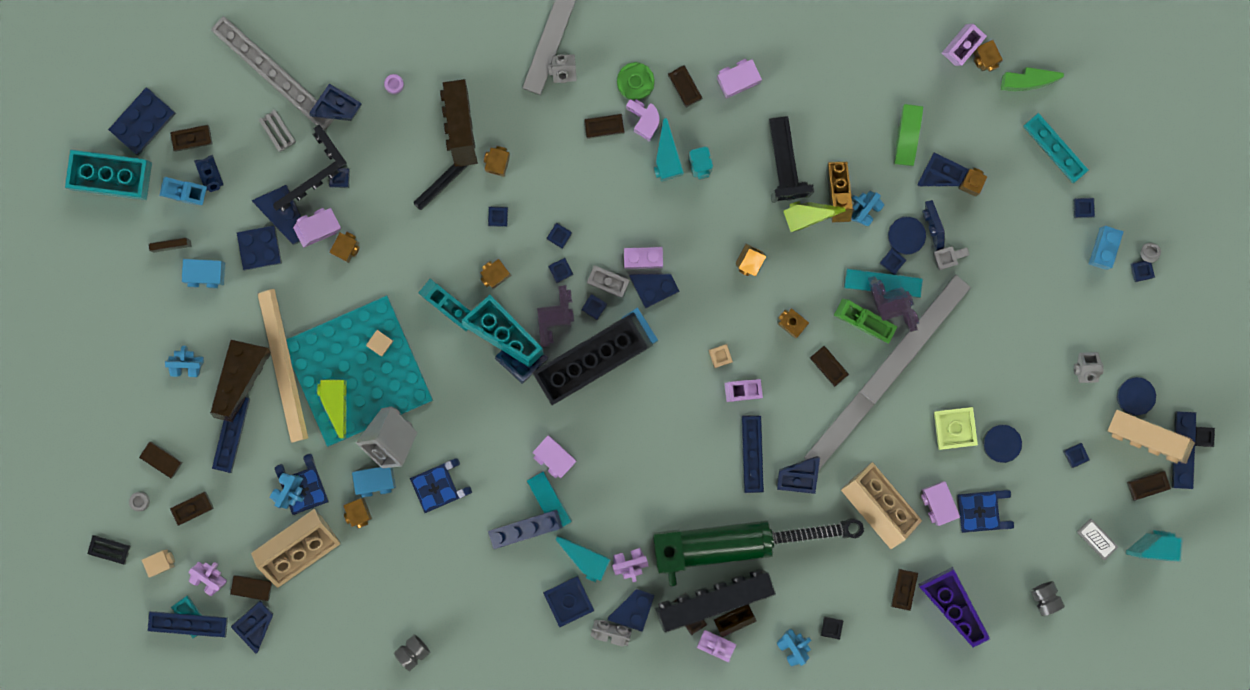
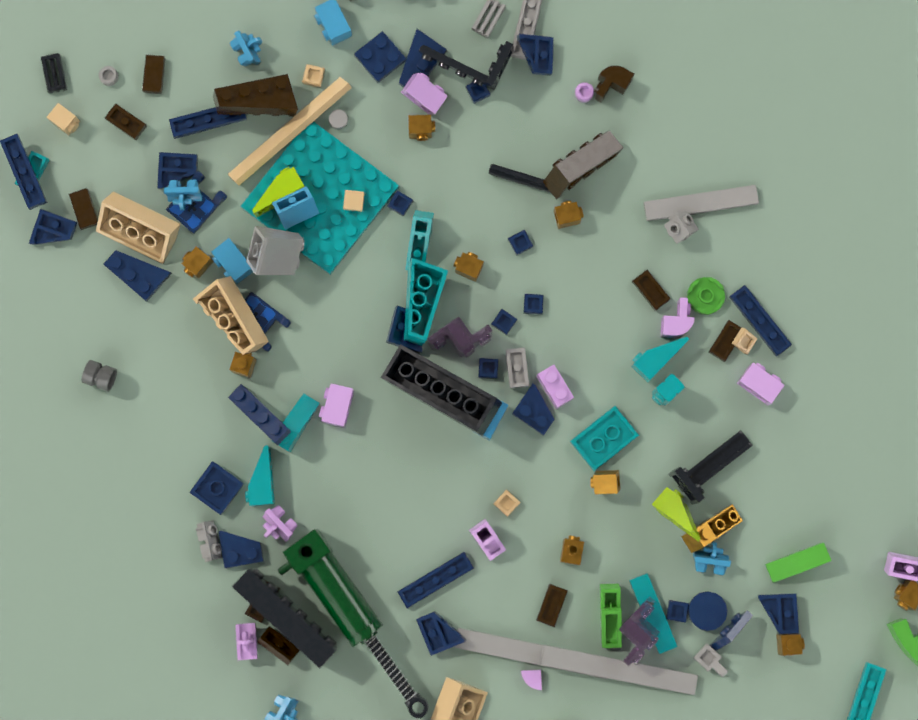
camera: 60 degrees right, 5 degrees down
(209, 575) = (74, 166): lavender hips -> none
(243, 317) = (313, 75): none -> tan tile
(259, 485) = (175, 167): none -> dark blue wing
(296, 316) = (338, 119): none -> light grey tile
(338, 571) = (137, 274): none -> dark blue wing
(358, 398) = (295, 207): none -> dark azure brick
(395, 50) = (615, 78): none -> dark brown brick
(403, 303) = (400, 203): none -> dark blue tile
(424, 505) = (232, 314): none -> tan wedge
(471, 519) = (243, 364): none -> pearl gold brick
(683, 46) = (760, 320): none -> dark blue tile
(694, 70) = (744, 341): none -> tan tile
(711, 240) = (604, 438): none -> teal tile
(881, 417) = (532, 678): none -> lavender tile

